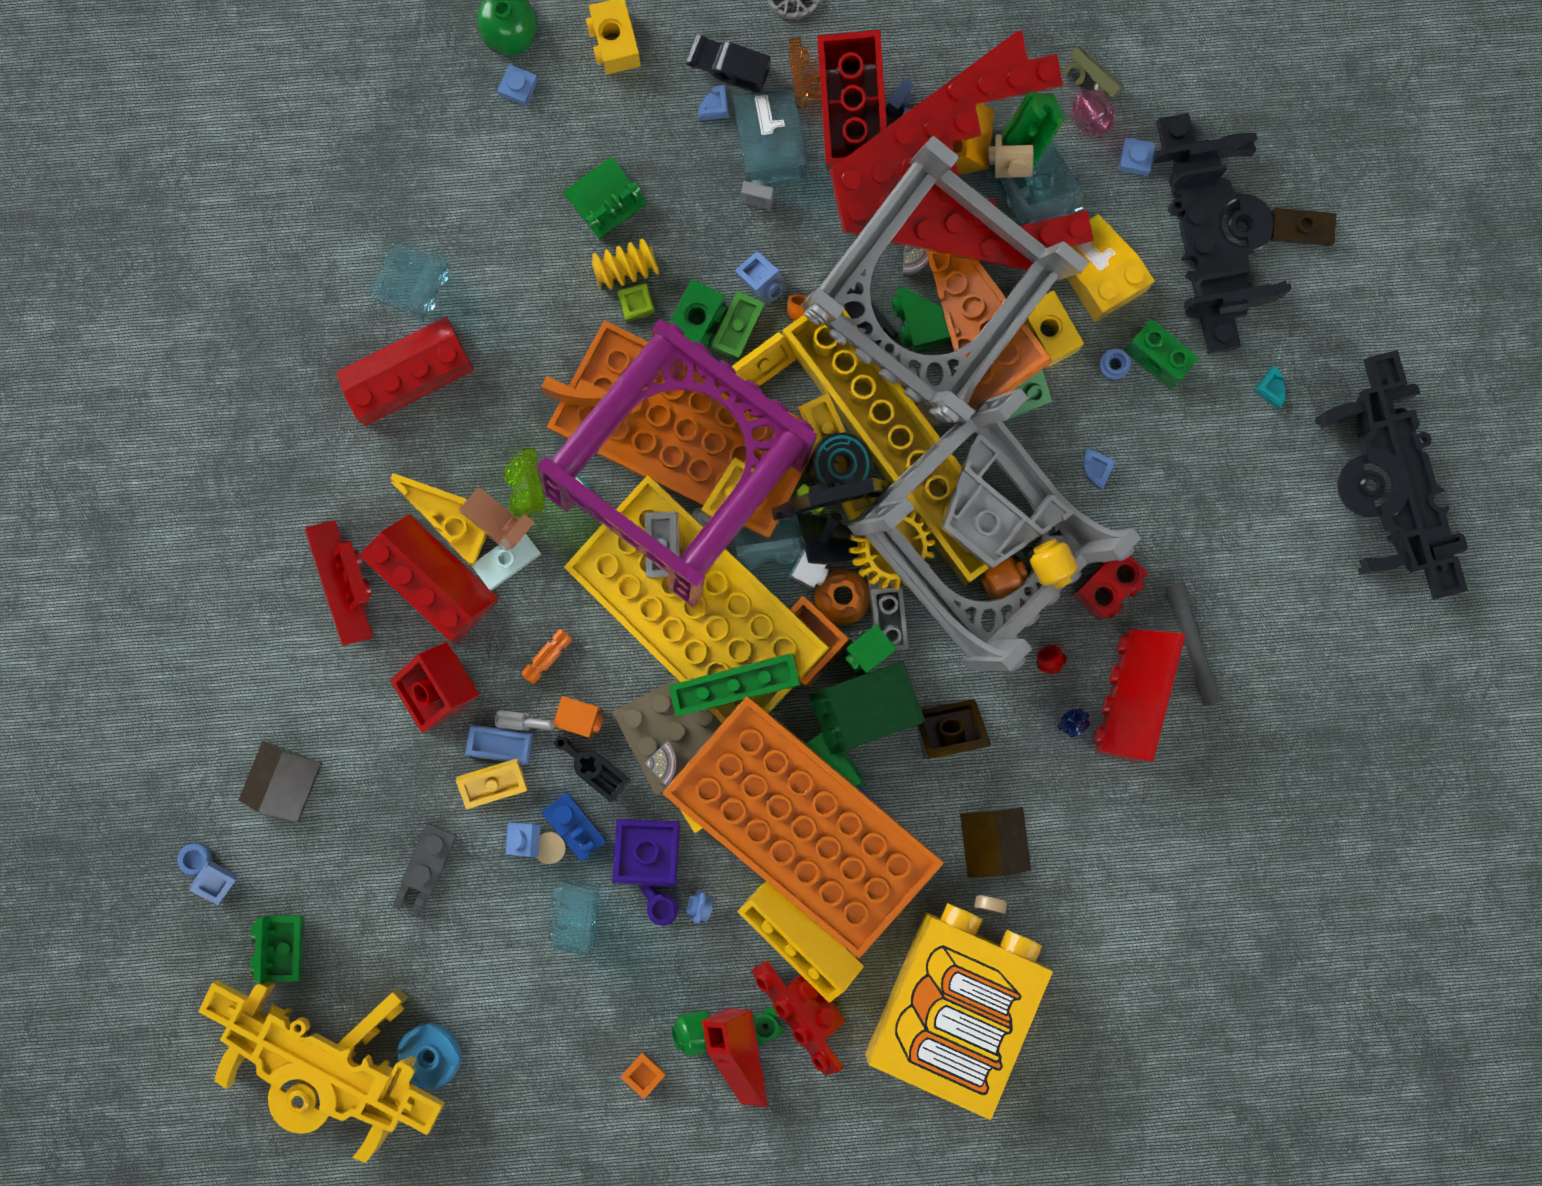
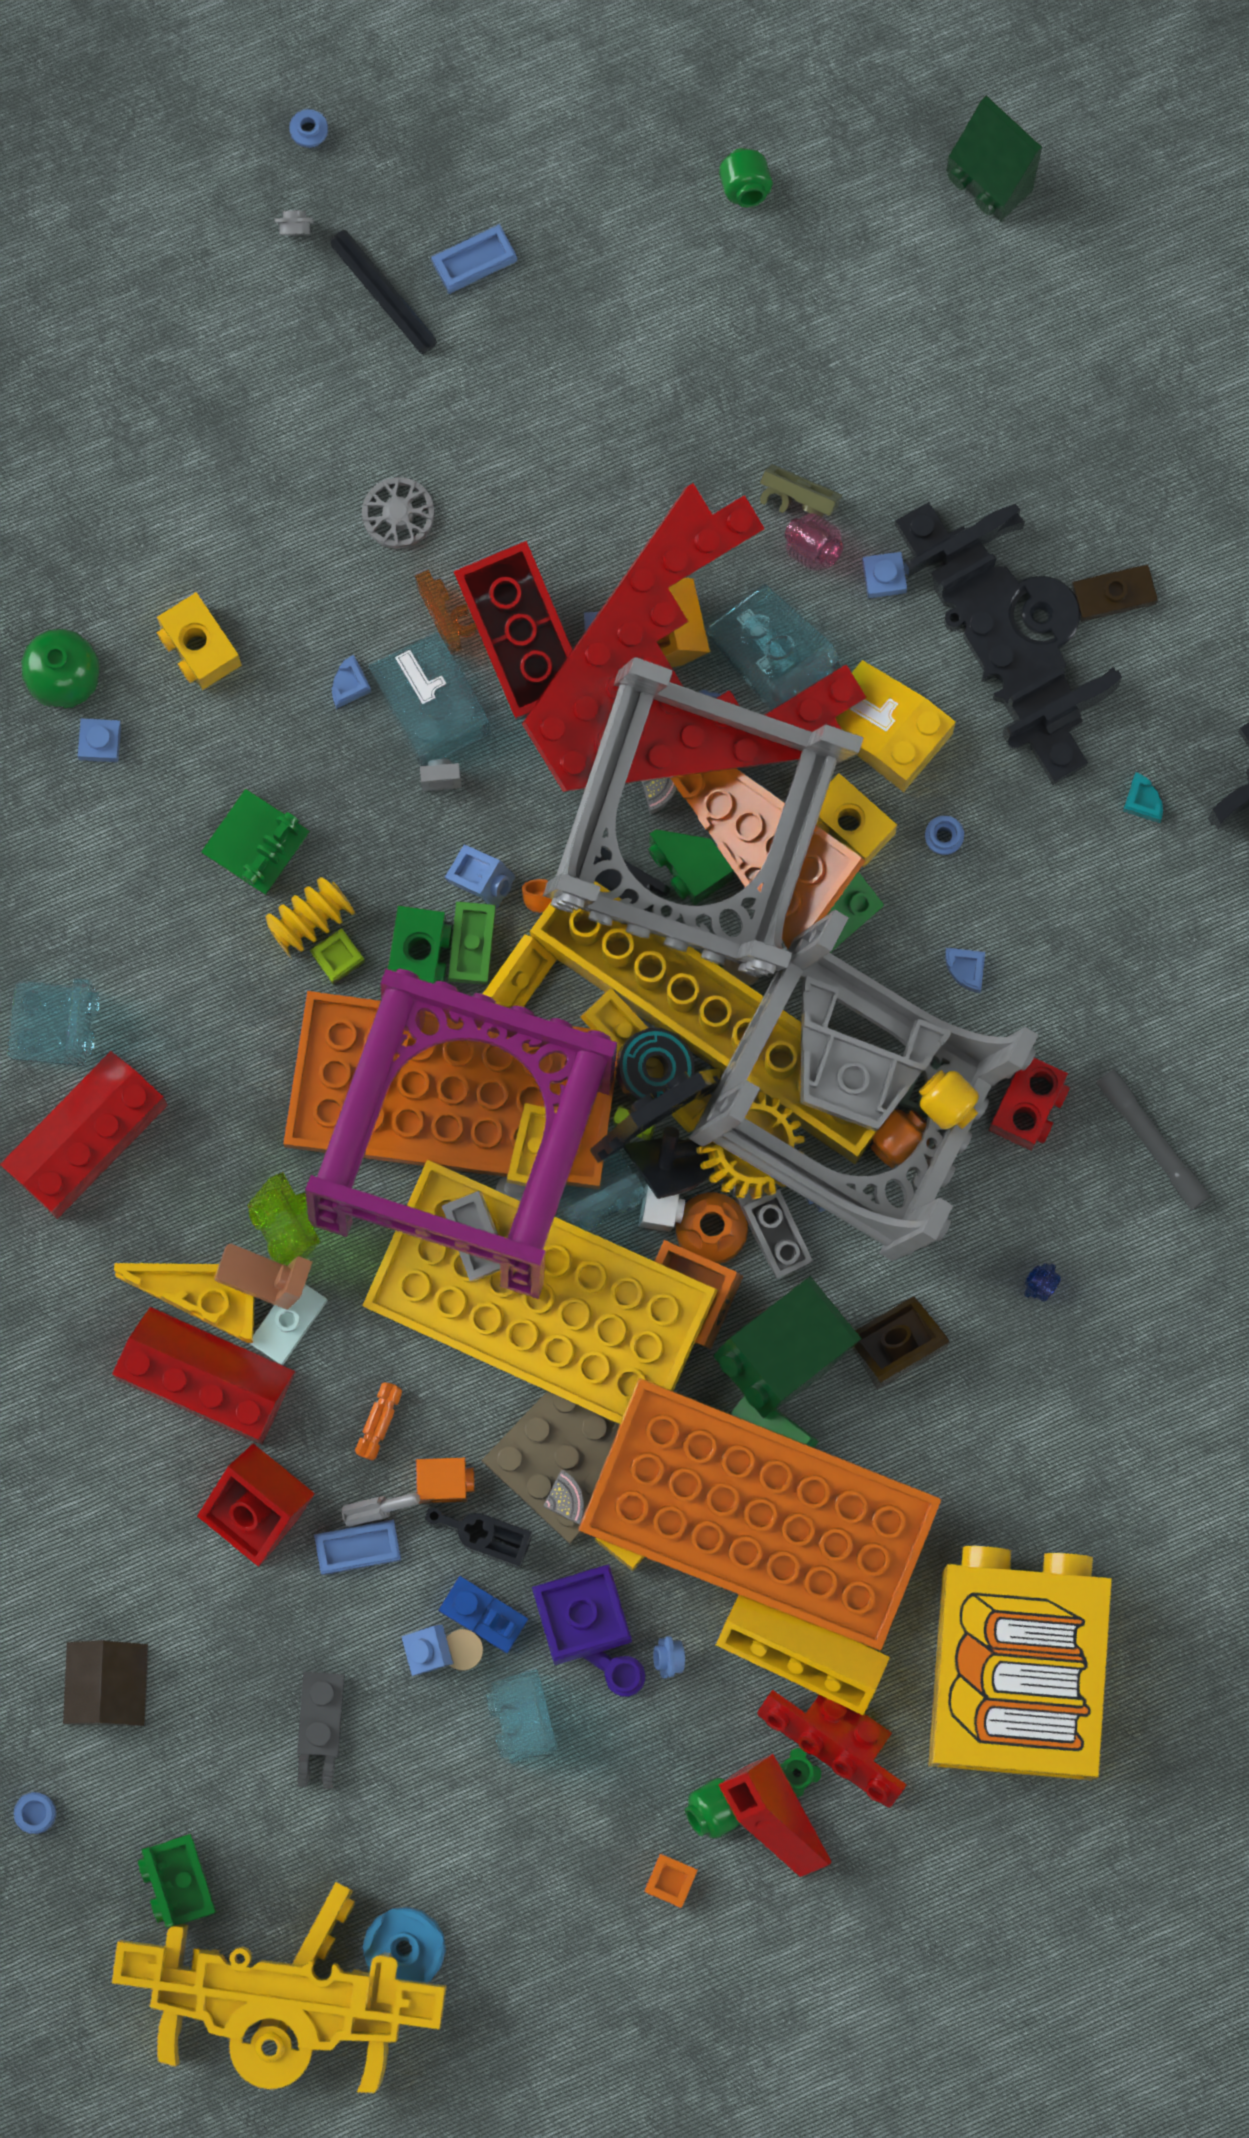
camera: 15 degrees left, 5 degrees down
(213, 882) = (69, 1831): medium blue plate -> none
(341, 581) = (98, 1414): red bracket -> none
(491, 783) = (366, 1596): yellow plate -> none
(584, 395) = (319, 1089): orange slope -> none
(730, 63) = (351, 627): black piece -> none
(735, 685) = (620, 1372): green plate -> none
(868, 651) = (765, 1279): green slope -> none
(900, 98) = (573, 602): medium blue plate -> none
(990, 904) = (1016, 1534): tan tile -> none
(995, 842) = (997, 1458): dark brown slope -> none
(1011, 160) = (733, 635): tan bracket -> none
(1034, 123) = (746, 587): green hinge -> none
(1051, 659) = (988, 1217): red plate -> none
(1138, 694) = (1102, 1222): red slope -> none
(1161, 354) = (994, 805): green brick -> none

